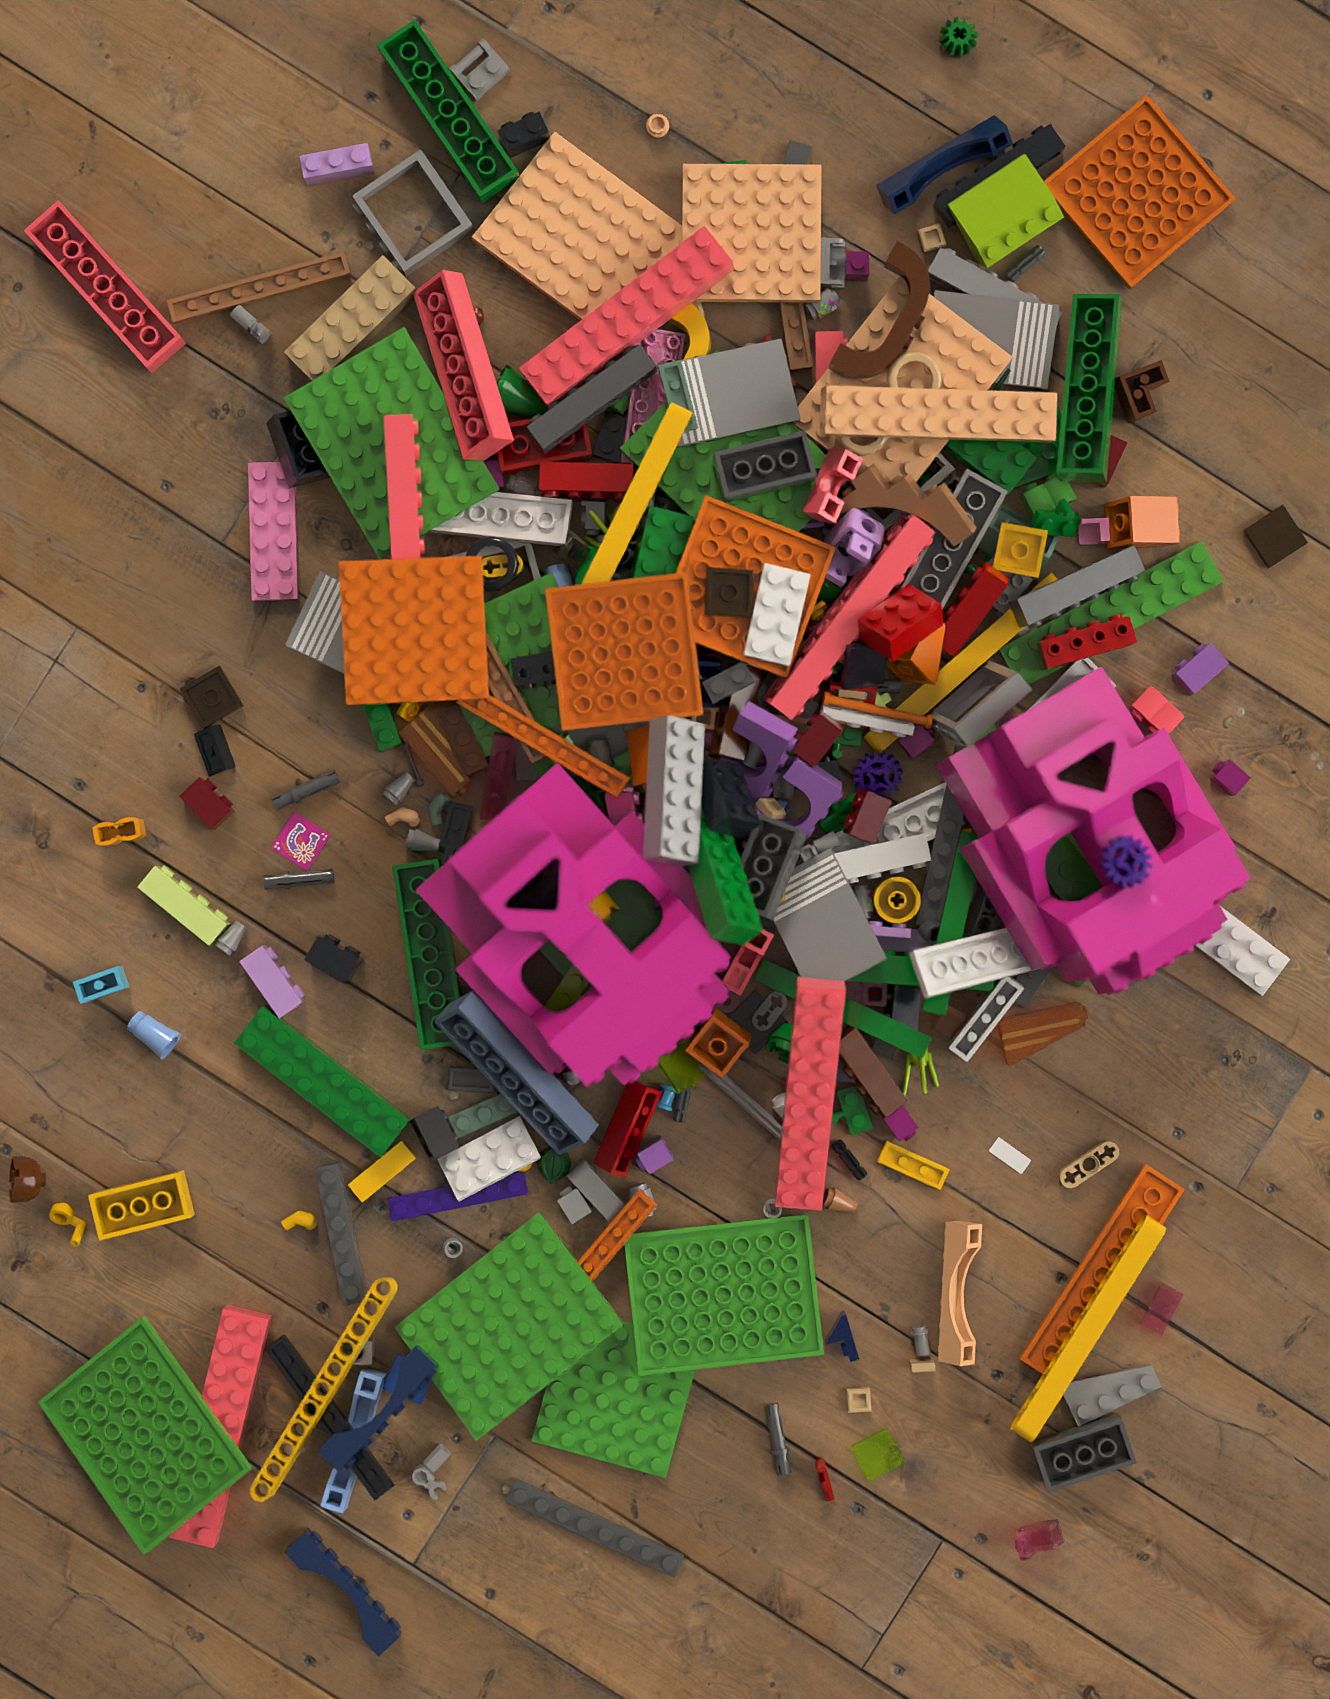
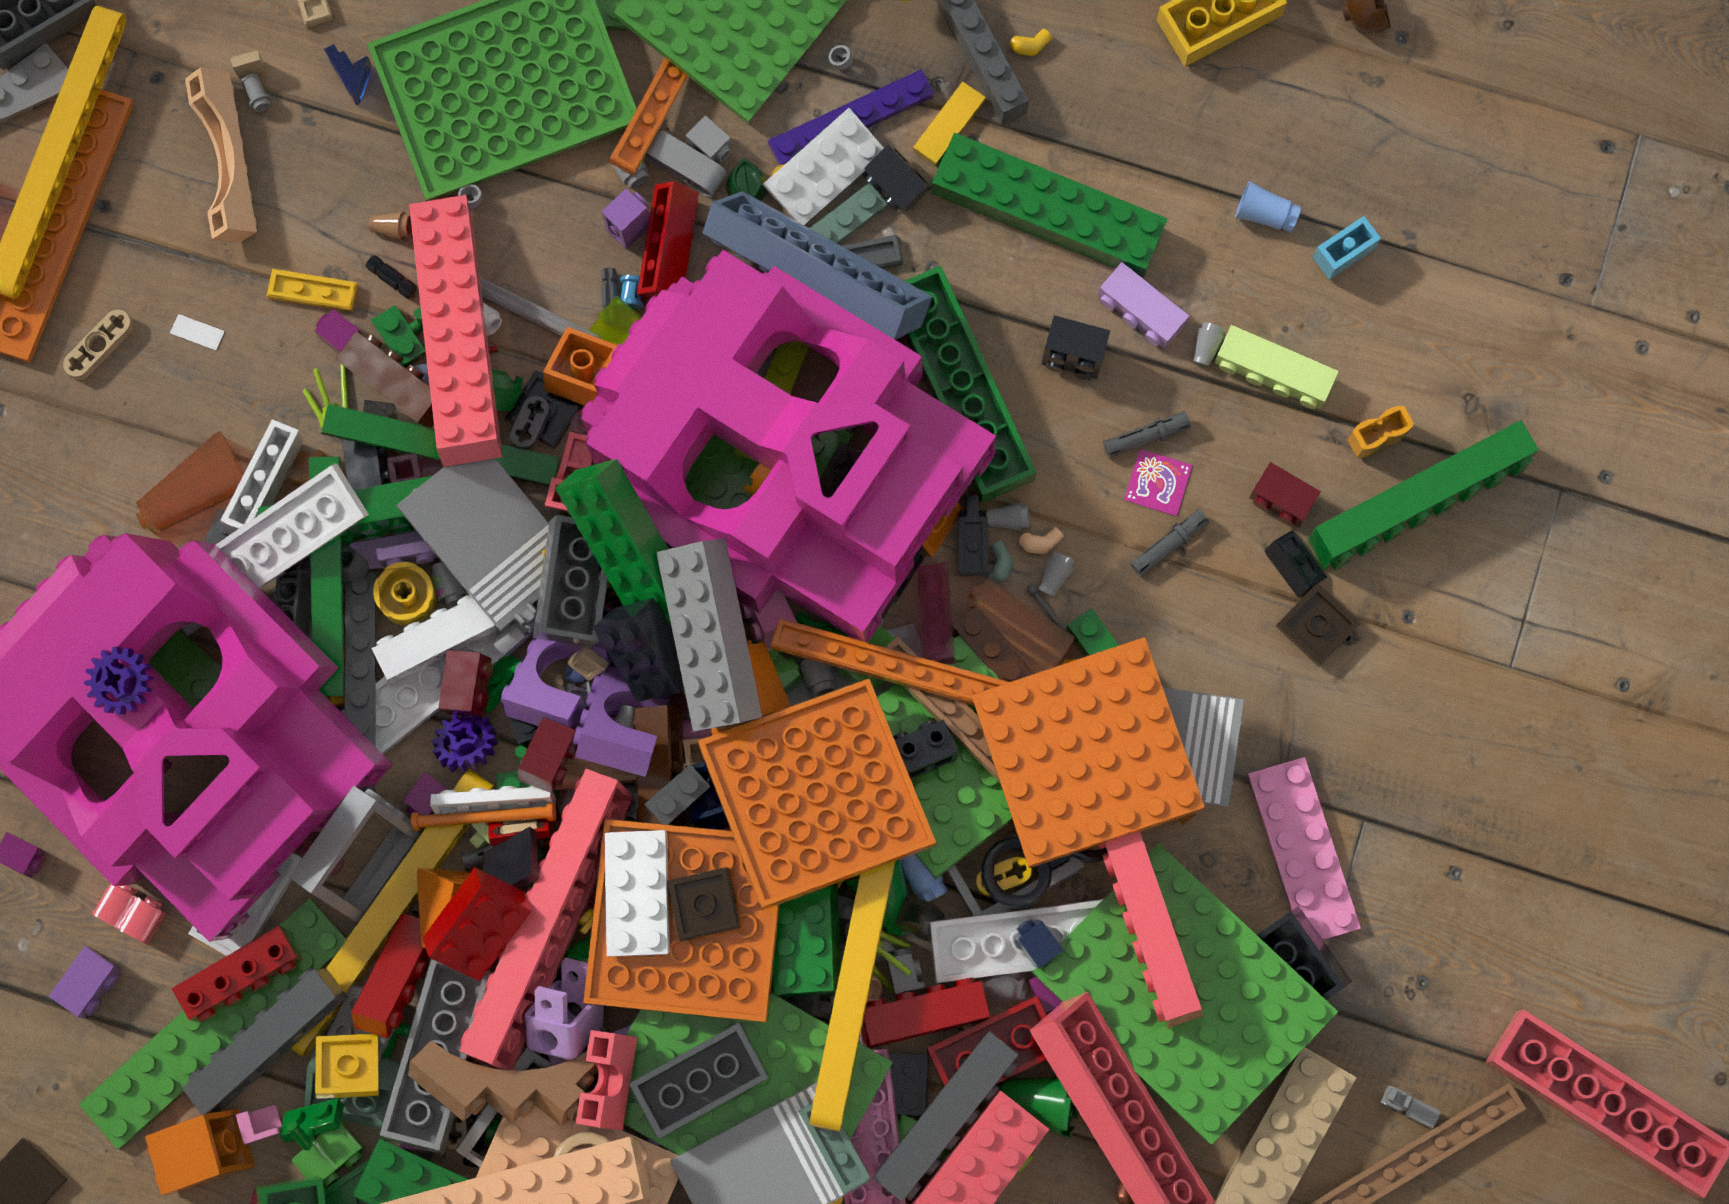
camera: 165 degrees right, 10 degrees down
(102, 772) = (1423, 495): none -> green brick
(490, 508) = (1037, 942): none -> dark blue brick

